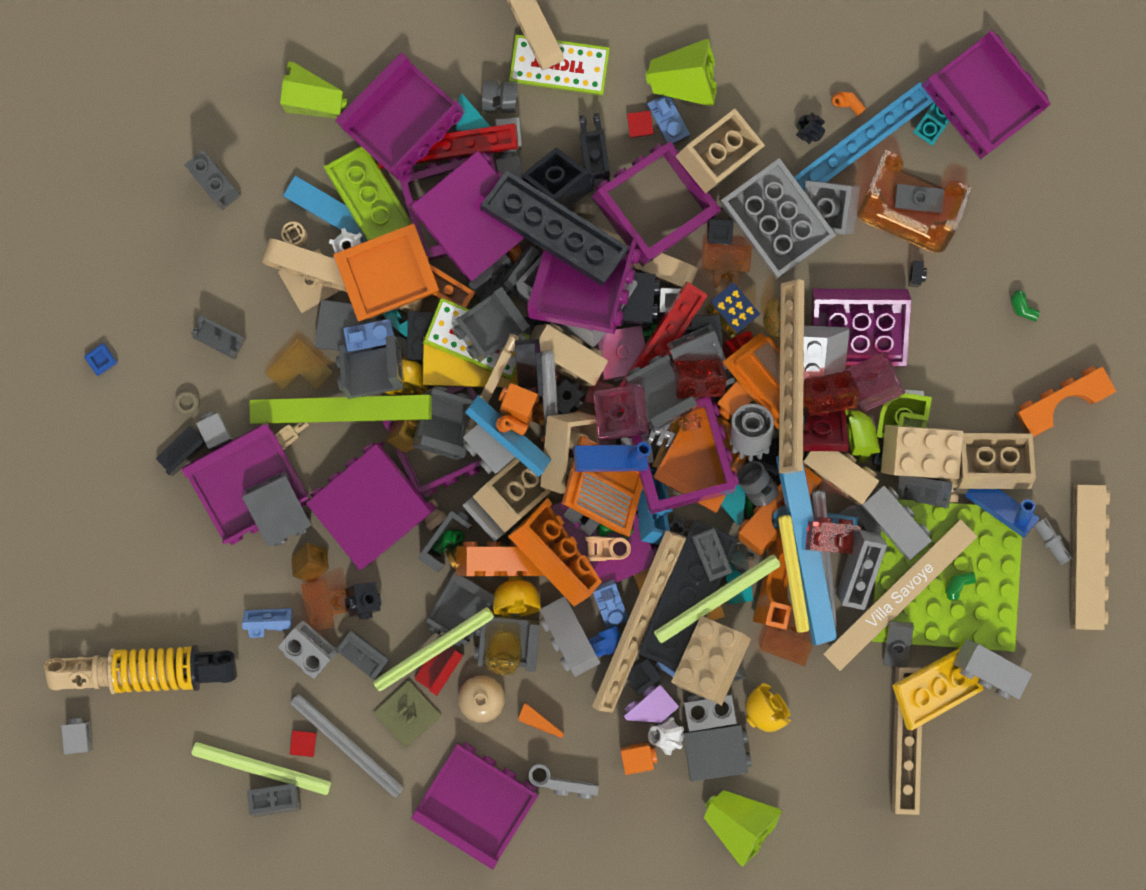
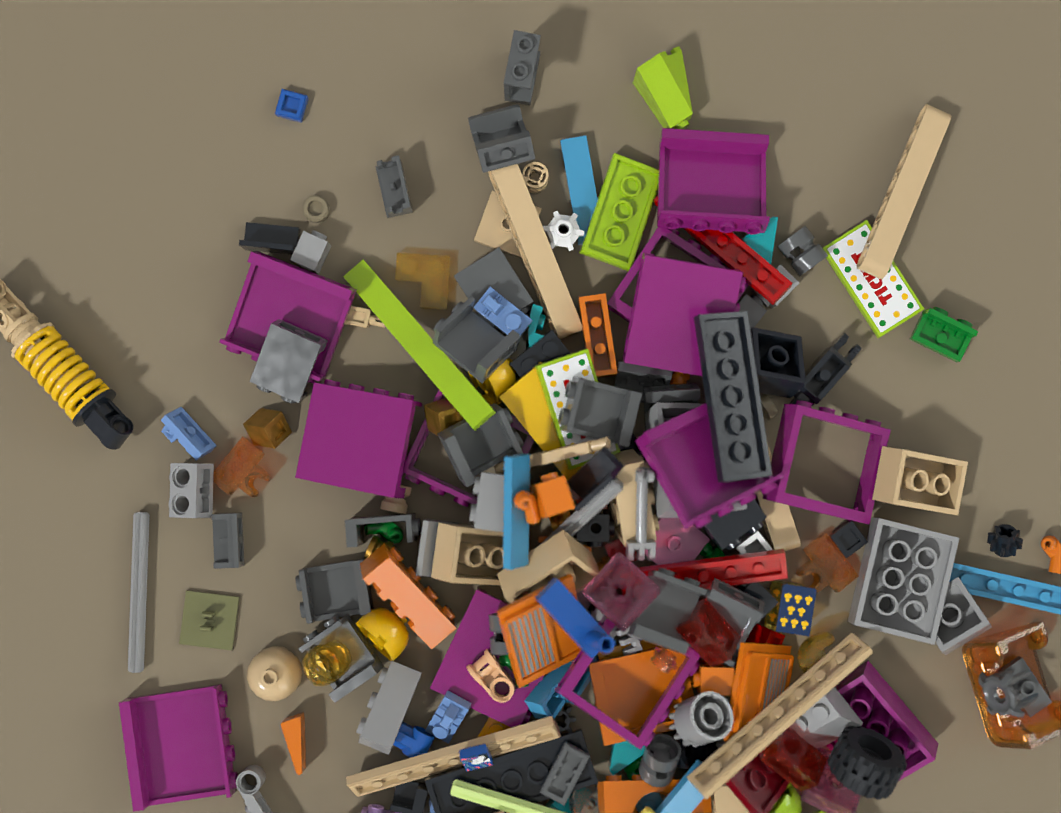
camera: 50 degrees right, 0 degrees up
(248, 235) = (501, 138): none -> dark grey panel
(261, 768) = (58, 535): yellowish green axle -> none
(273, 800) = (37, 570): dark grey hinge -> none
(303, 743) = (109, 553): red tile -> none
(362, 600) = (272, 501): black brick -> none
(386, 272) = (569, 283): orange piece -> none
(433, 649) = (281, 598): yellowish green axle -> none
(439, 669) = (271, 614): red panel -> none
(555, 553) = (450, 637): orange wedge -> none
(556, 333) = (642, 477): none -> light grey hinge
(636, 49) = (943, 333): none -> green bracket
(640, 124) = (880, 390): red tile -> none
(651, 605) = (475, 757): none -> blue tile
(668, 119) = (906, 411): medium blue hinge -> none
(685, 74) = (958, 393): lime slope -> none
(873, 346) = (867, 762): none -> black tyre
(916, 218) = (1004, 681): none -> dark grey piece
(917, 274) = (958, 740): black plate -> none

